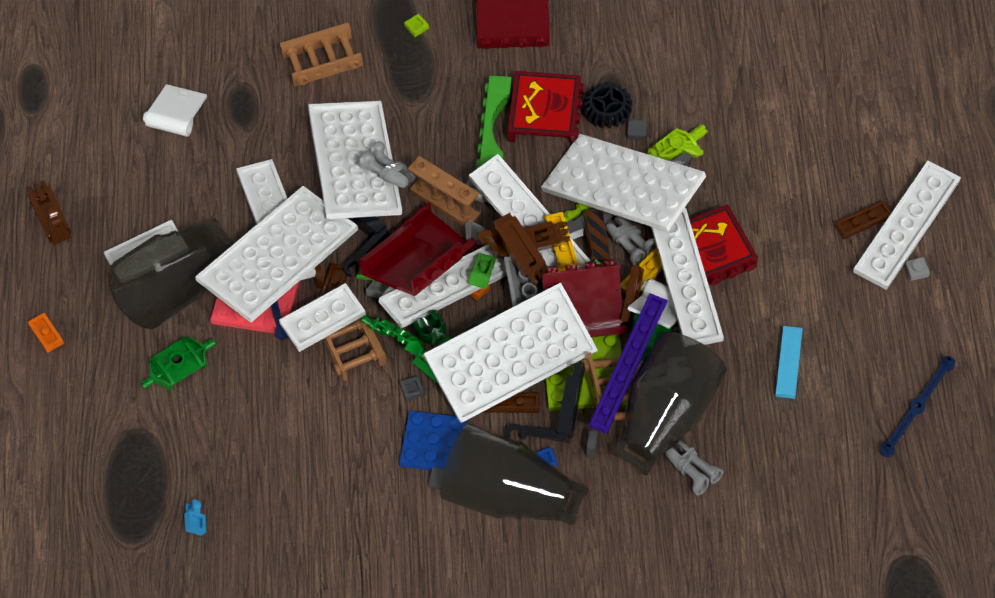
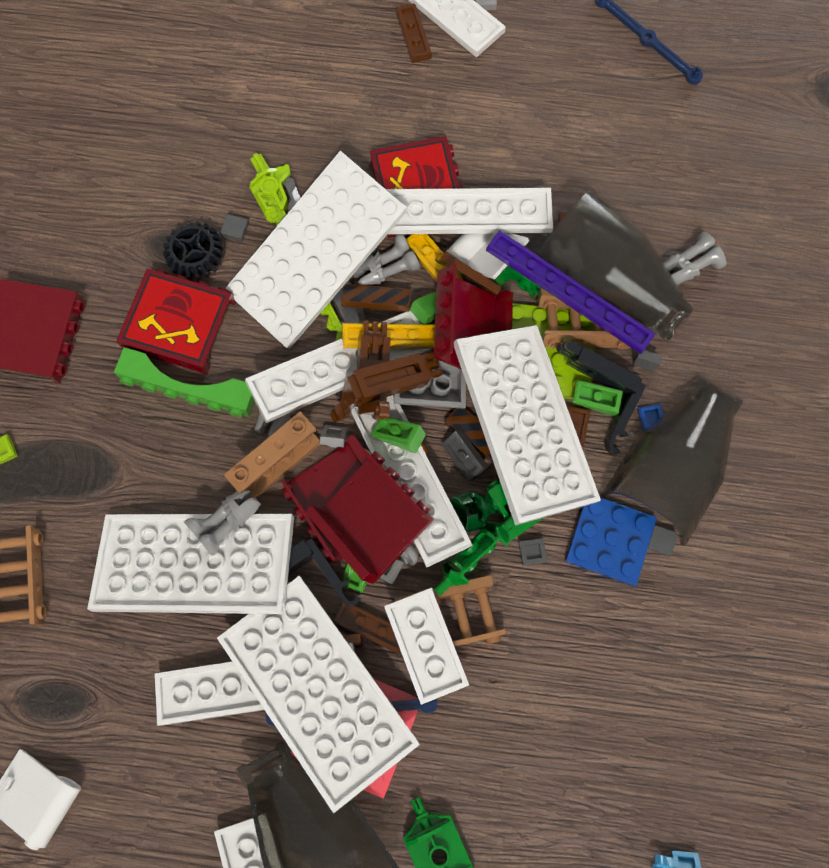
camera: 80 degrees left, 15 degrees up
(548, 409) = (597, 397): none -> bright green slope
(789, 362) = (574, 141): medium azure tile -> none

